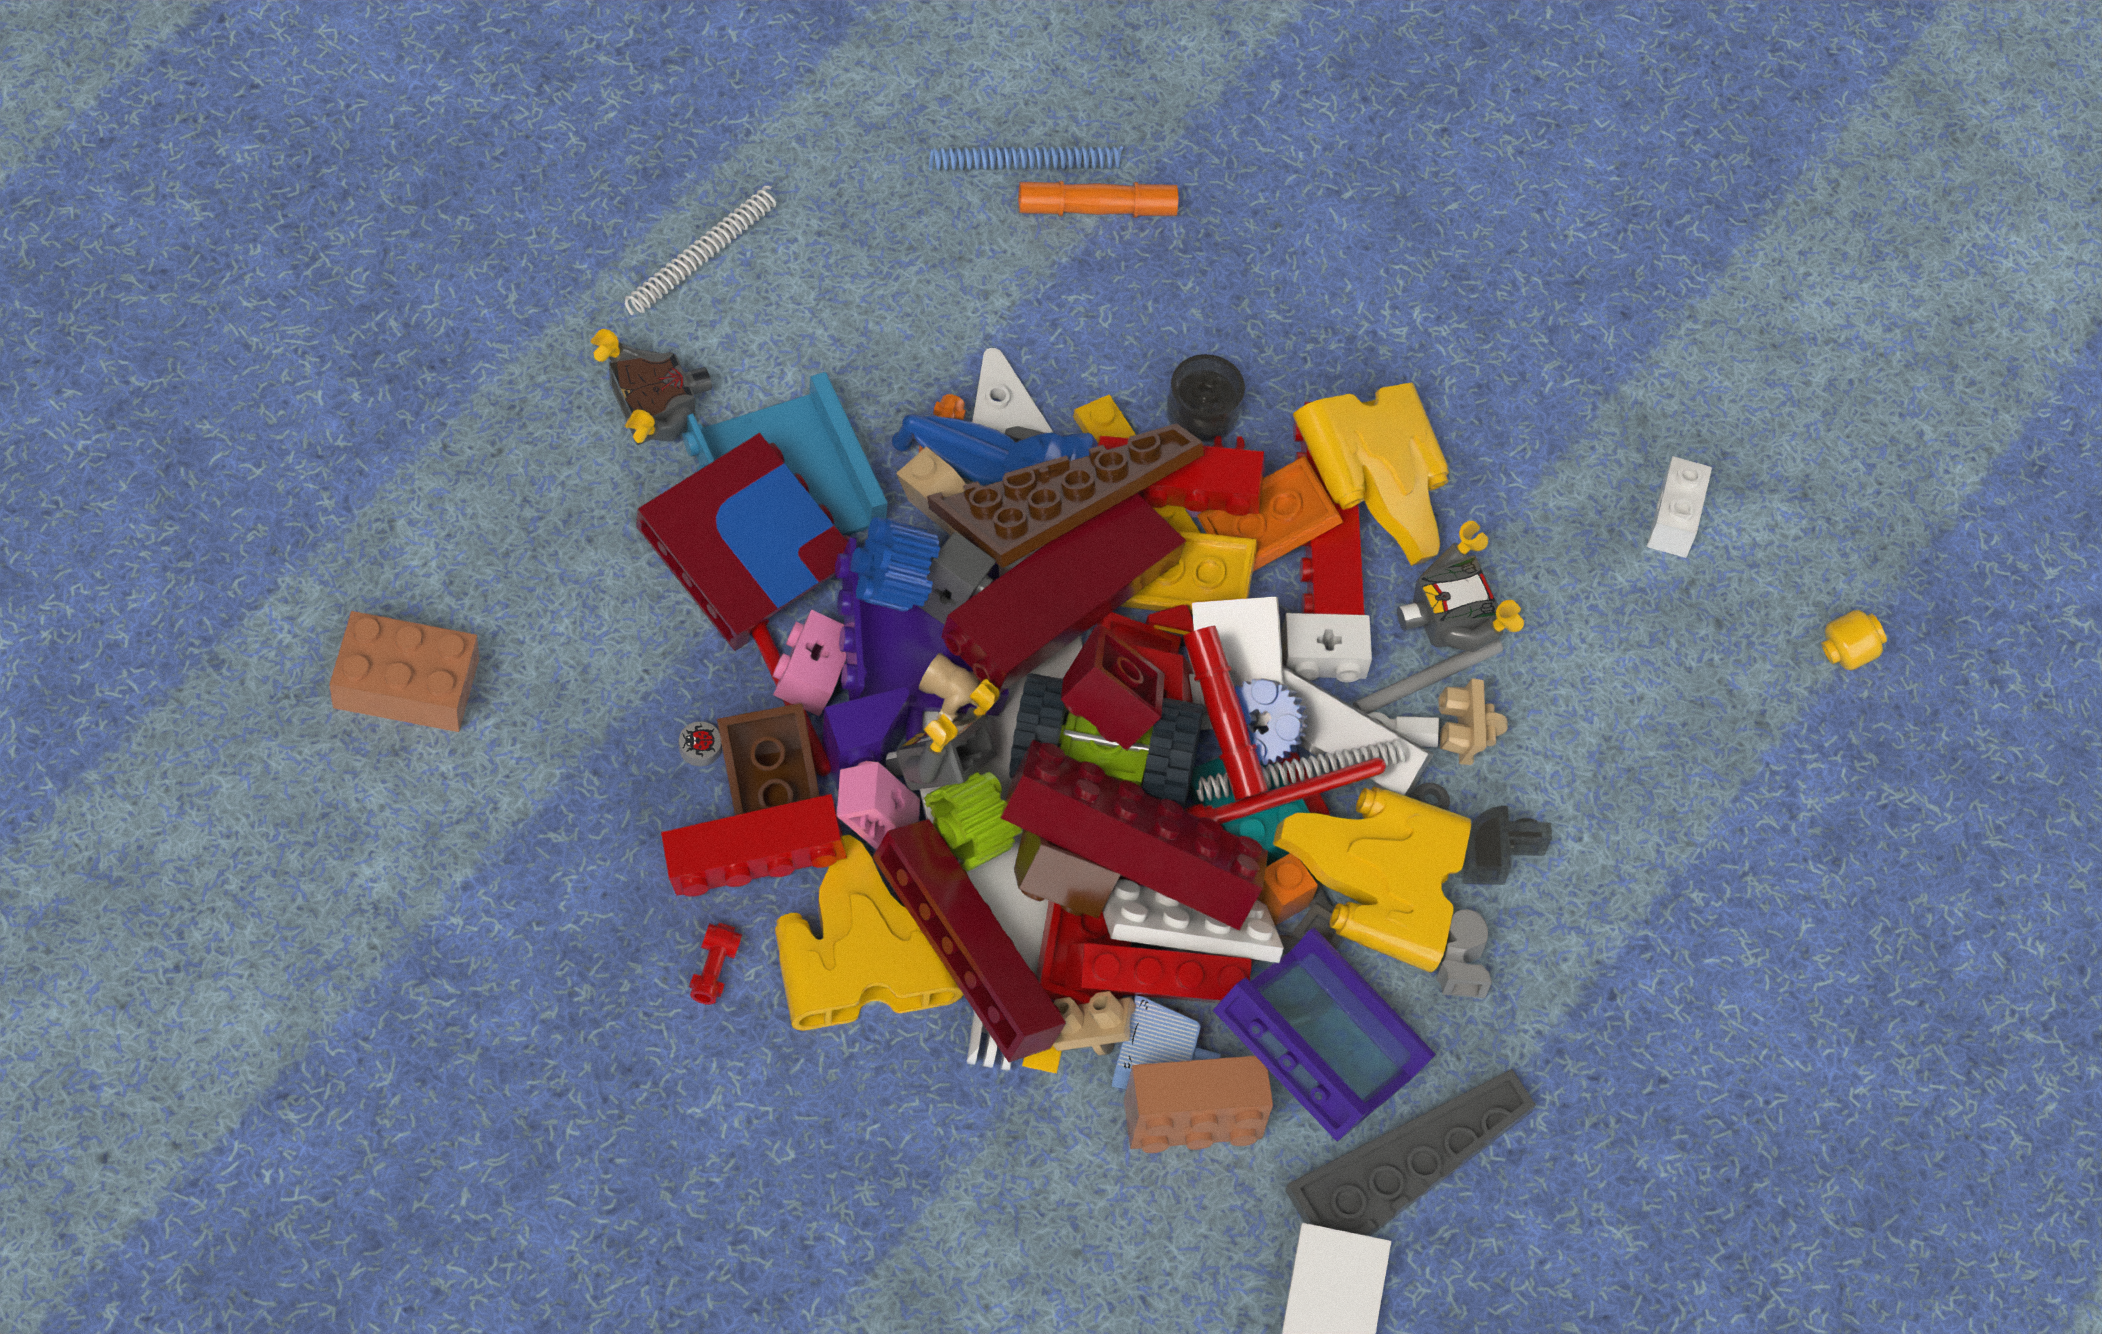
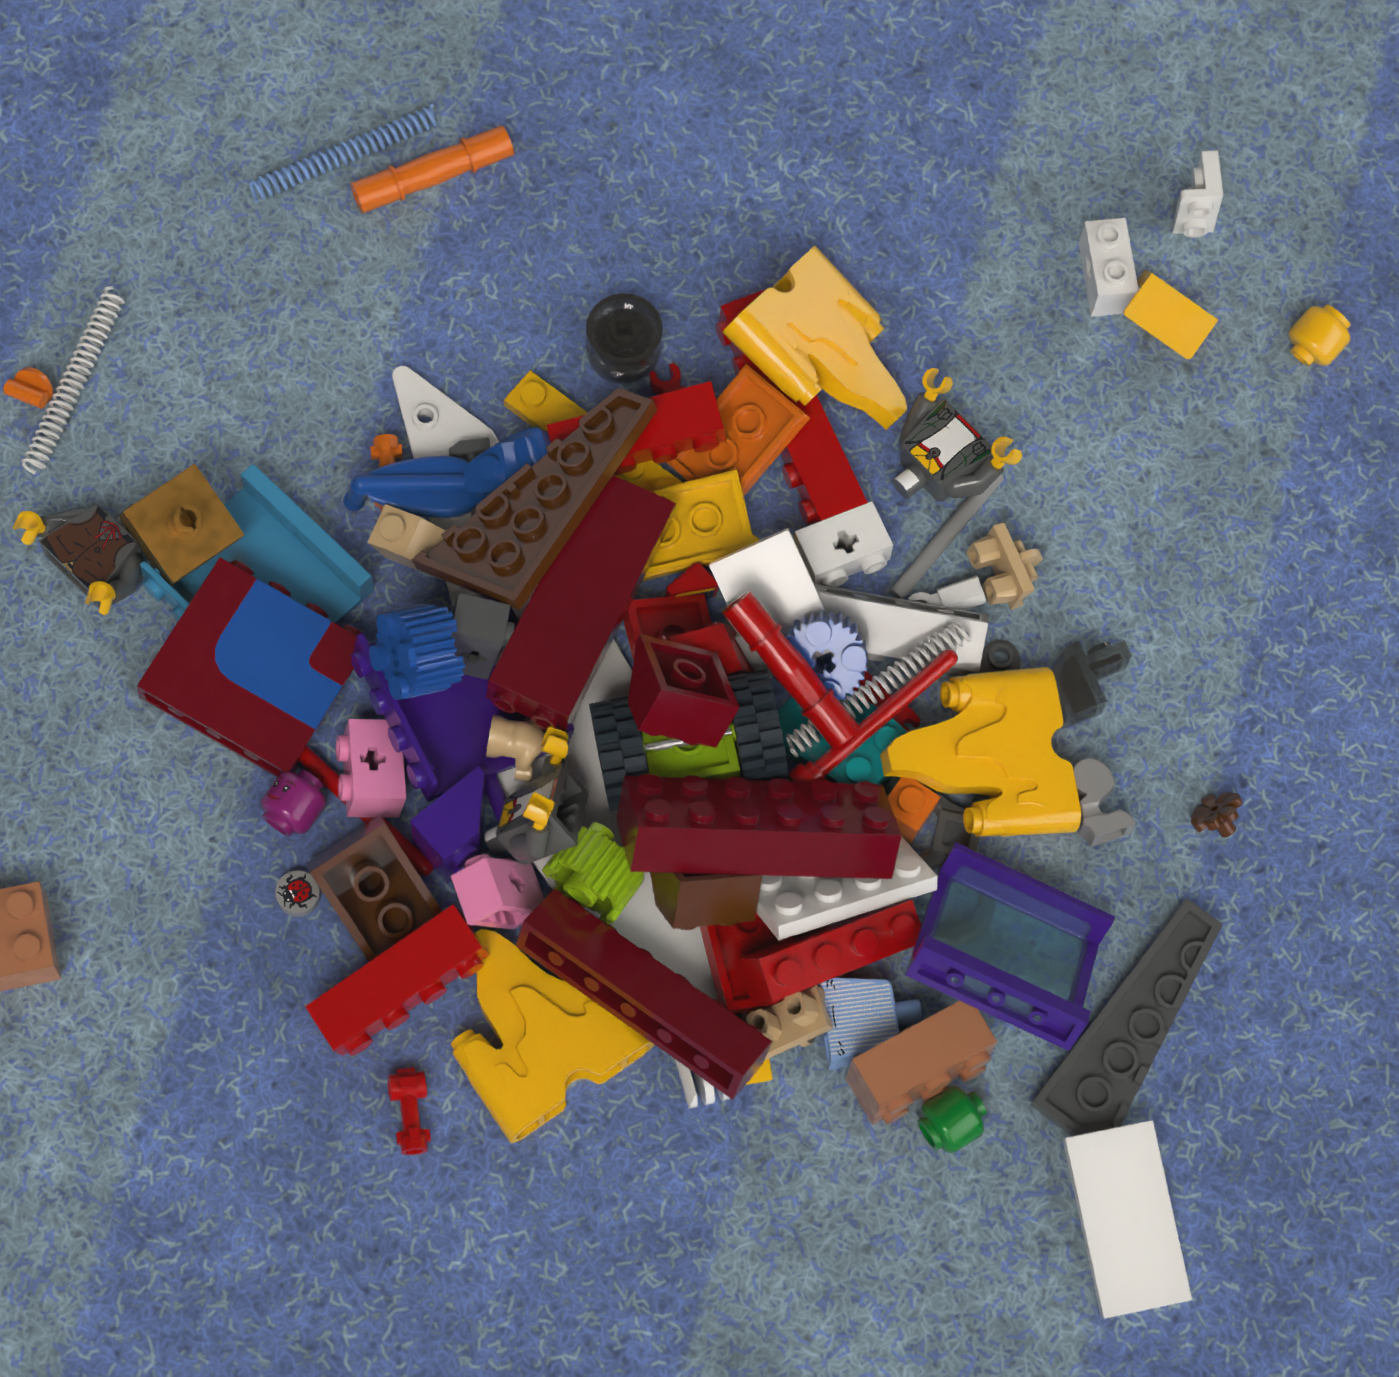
camera: 20 degrees left, 10 degrees up
(661, 241) = (30, 387): none -> orange plate
(731, 664) = (293, 802): none -> magenta head
(739, 396) = (181, 525): none -> pearl gold brick
(1205, 1169) = (952, 1119): none -> green head
(1574, 1010) = (1217, 813): none -> reddish brown plant
(1717, 566) = (1169, 315): none -> yellow panel
(1787, 480) = (1201, 203): none -> white bracket

